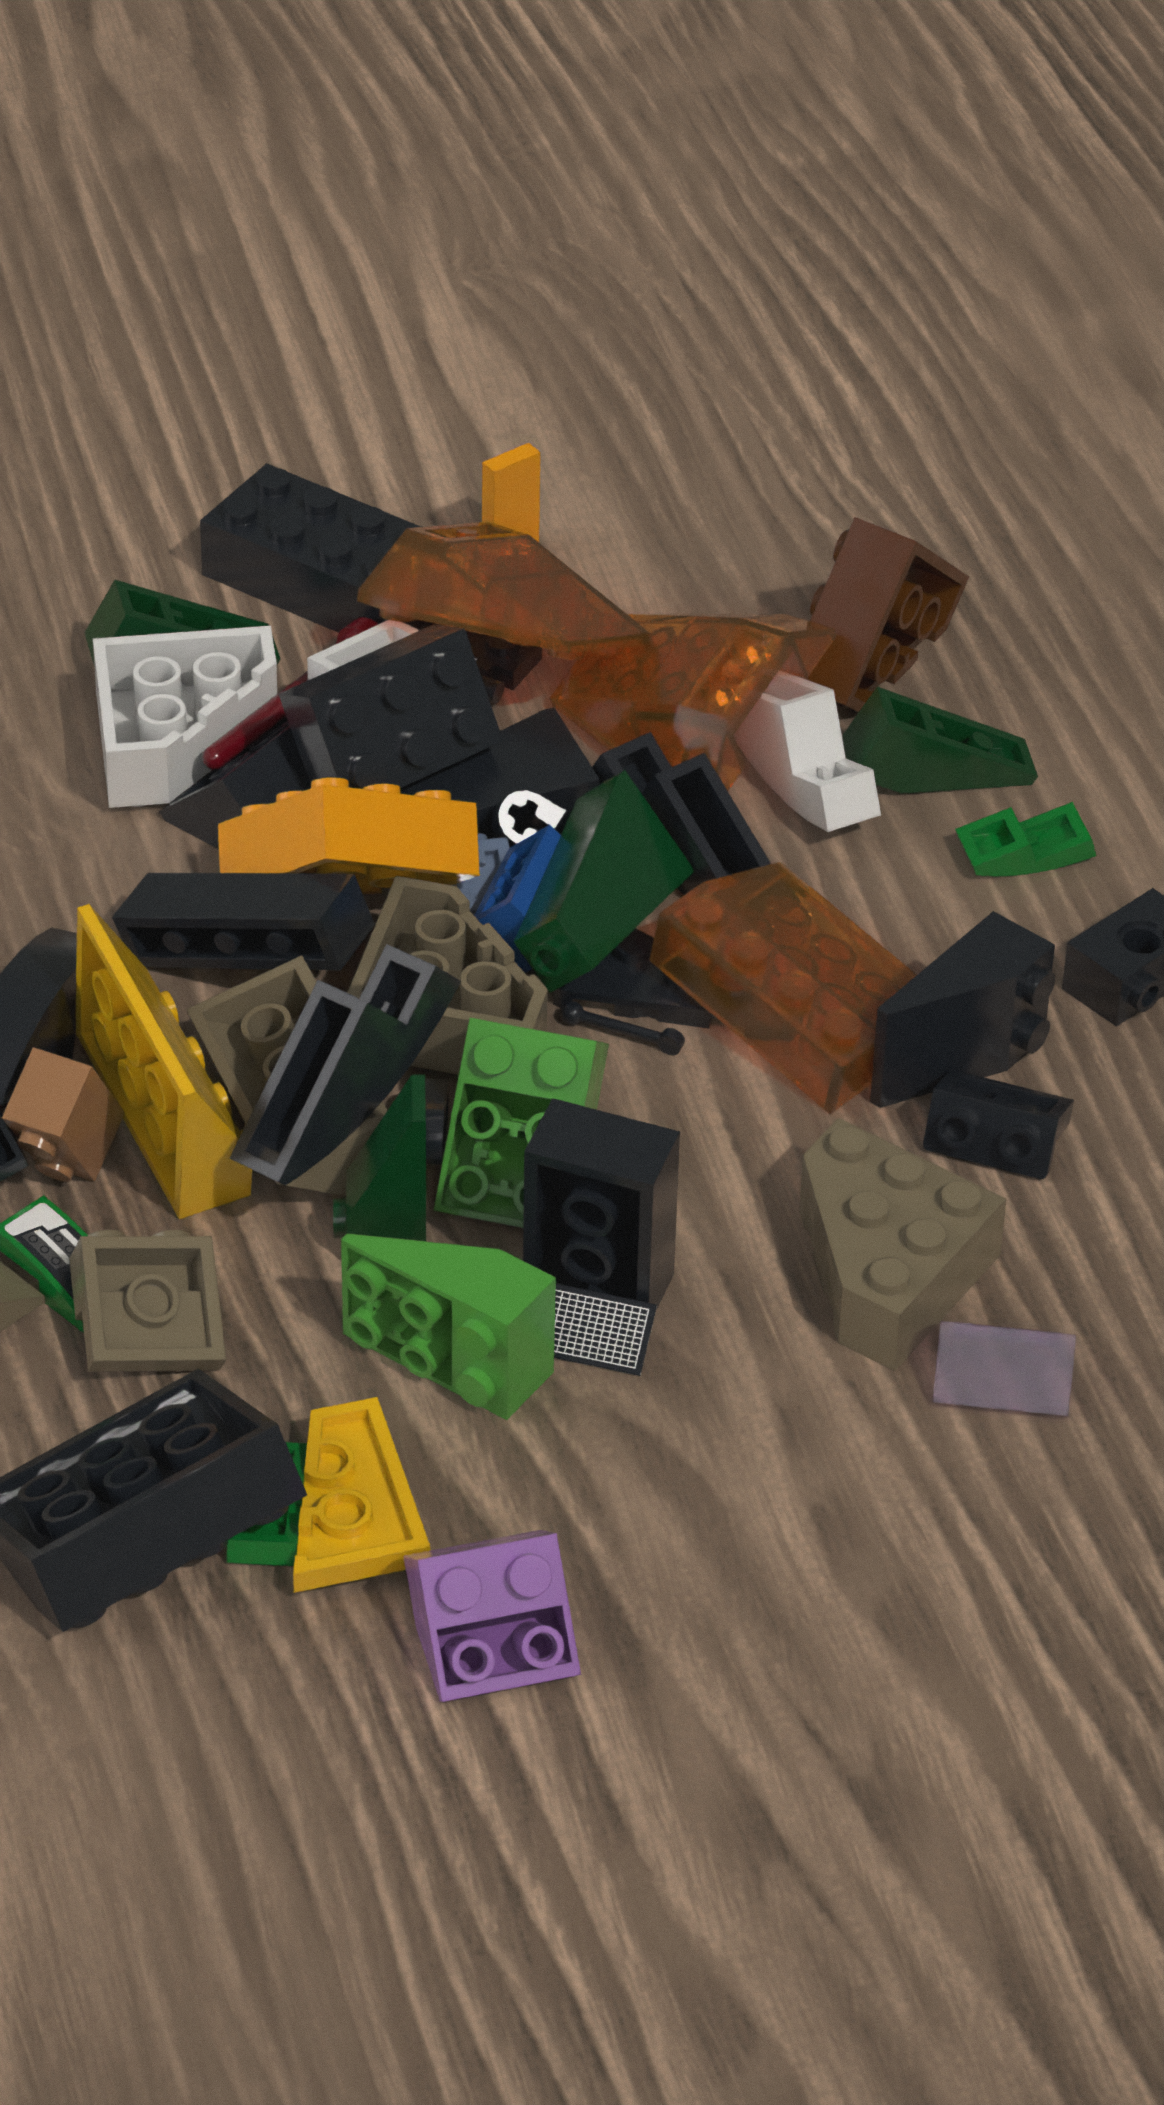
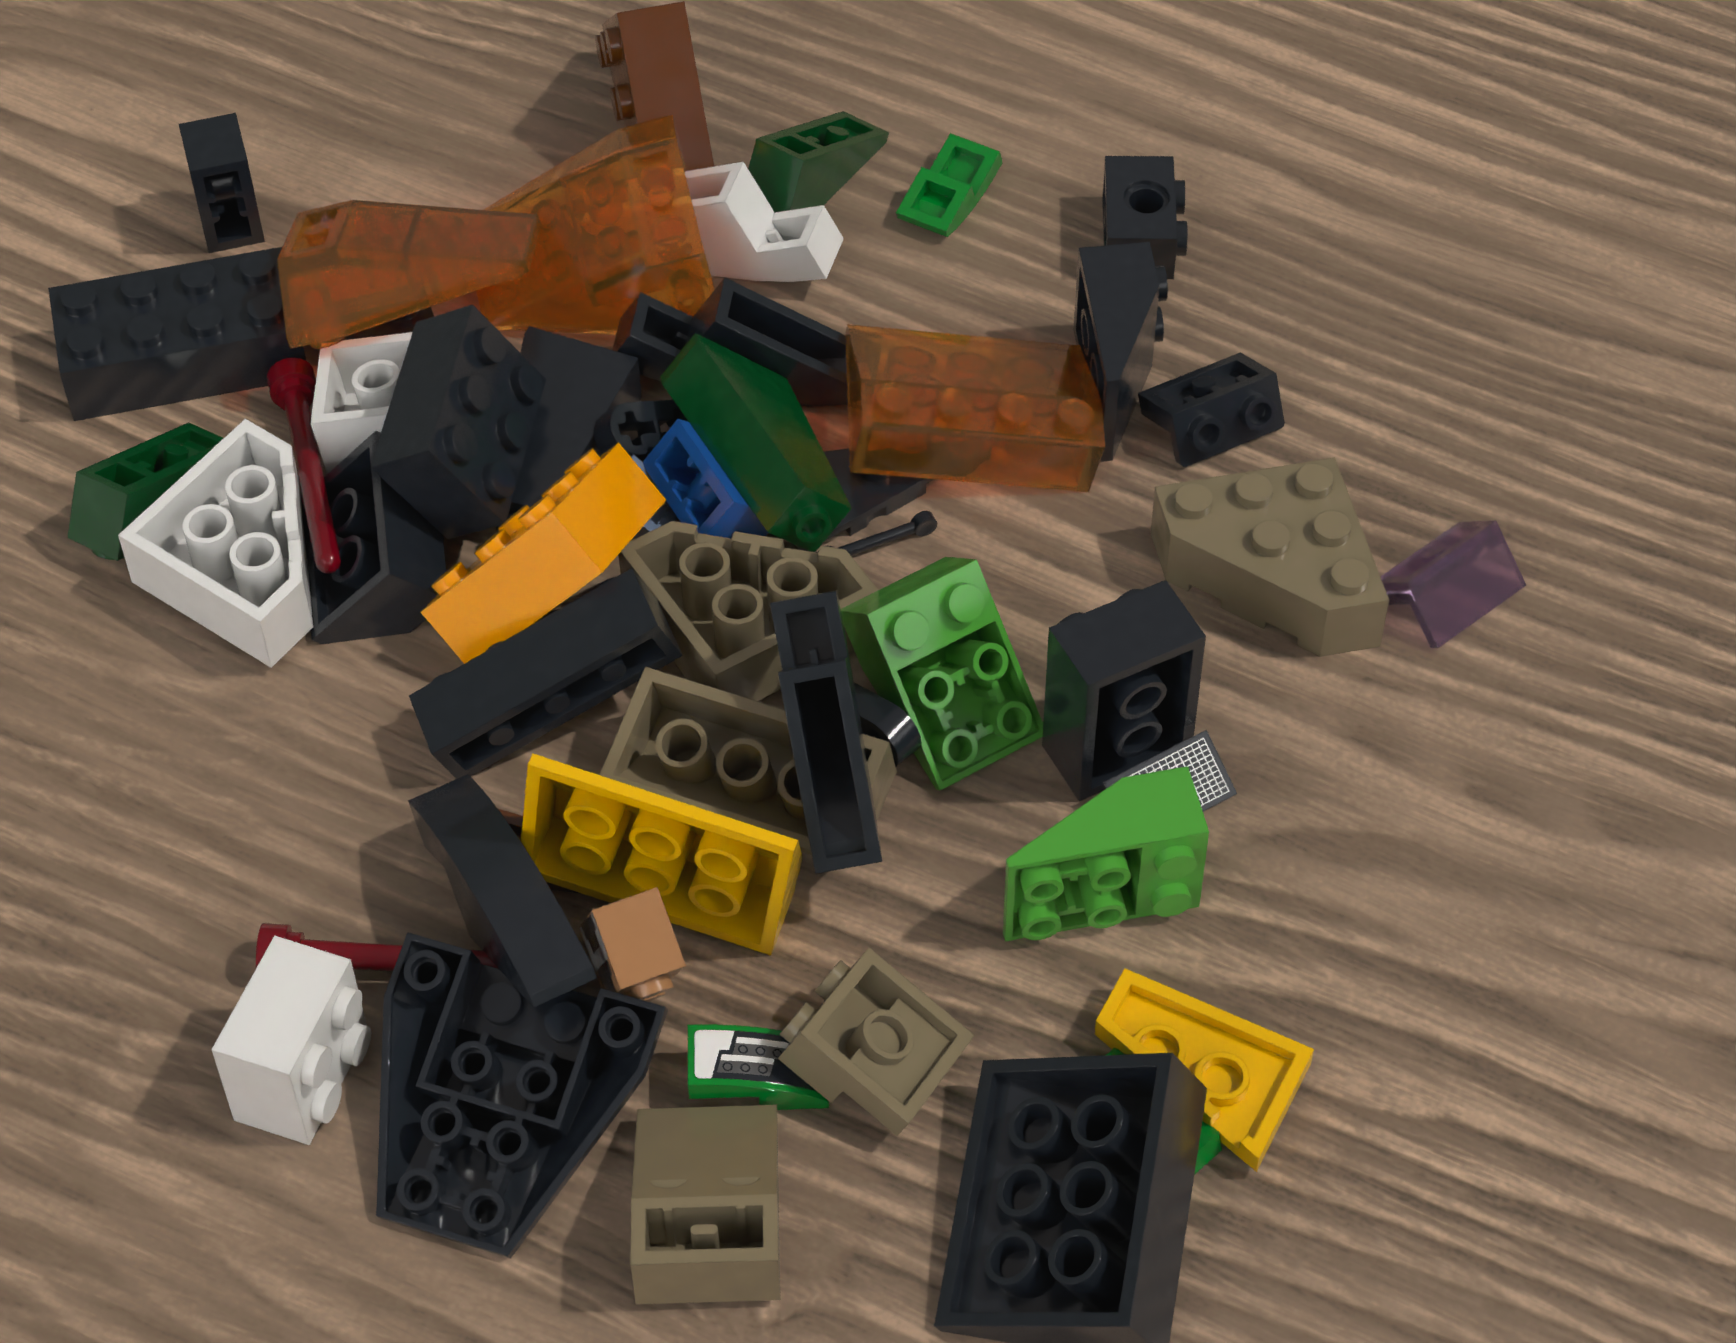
camera: 45 degrees left, 10 degrees up
(389, 1174) = (941, 789): dark green slope -> none
(459, 459) = (222, 182): none -> black brick
(493, 1614) = (1412, 1058): medium lavender slope -> none
(513, 490) = (274, 184): light orange tile -> none

